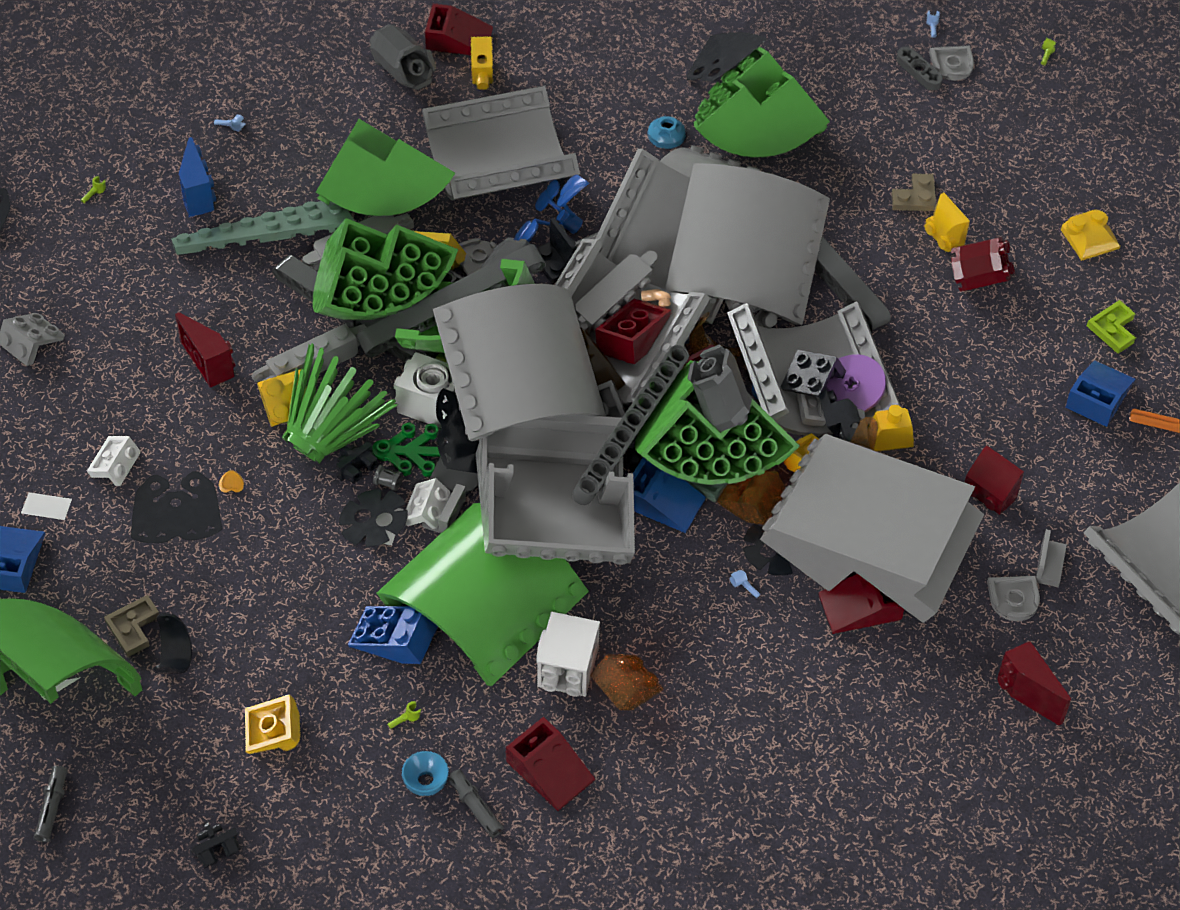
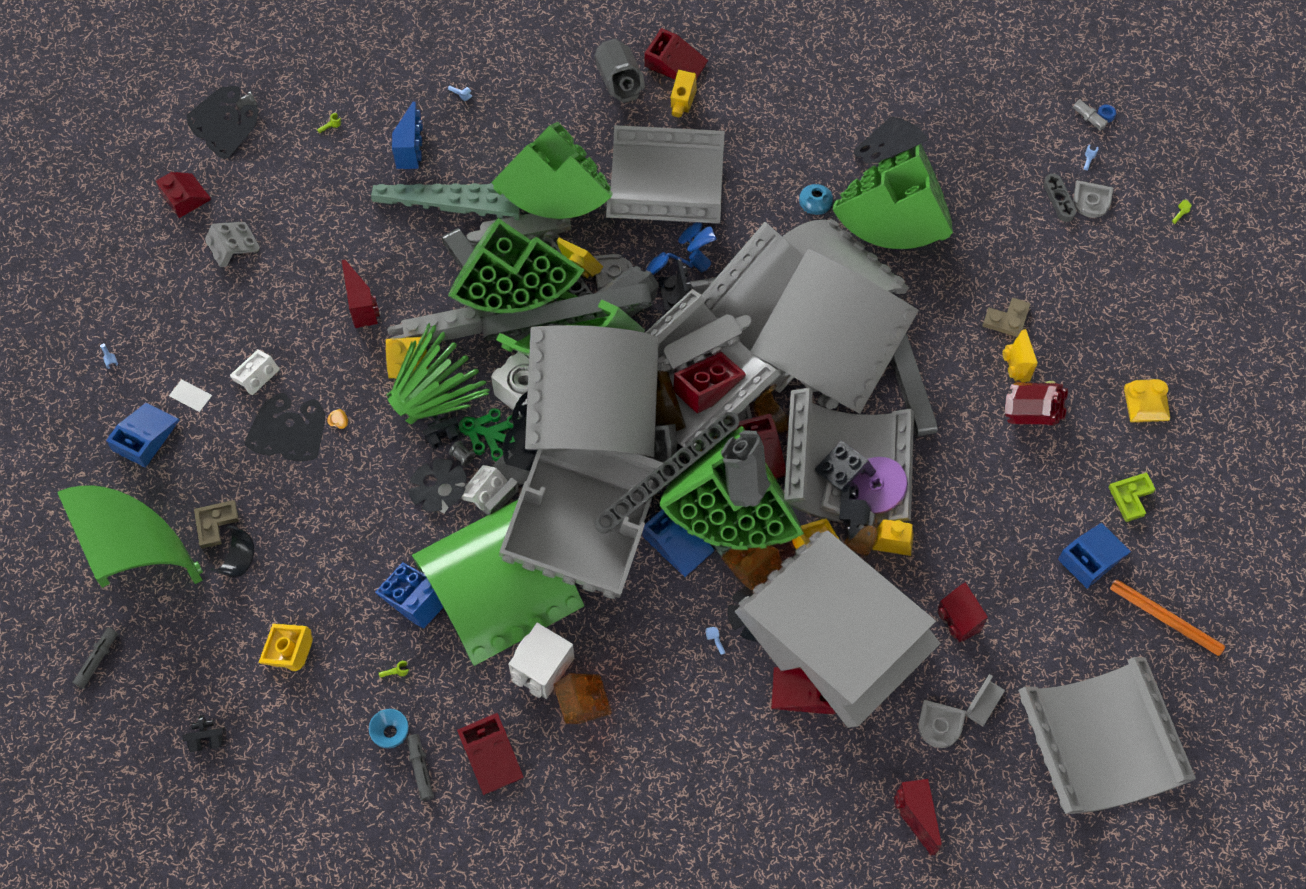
camera: 20 degrees right, 10 degrees up
(656, 294) = (740, 355): light nougat arm -> none

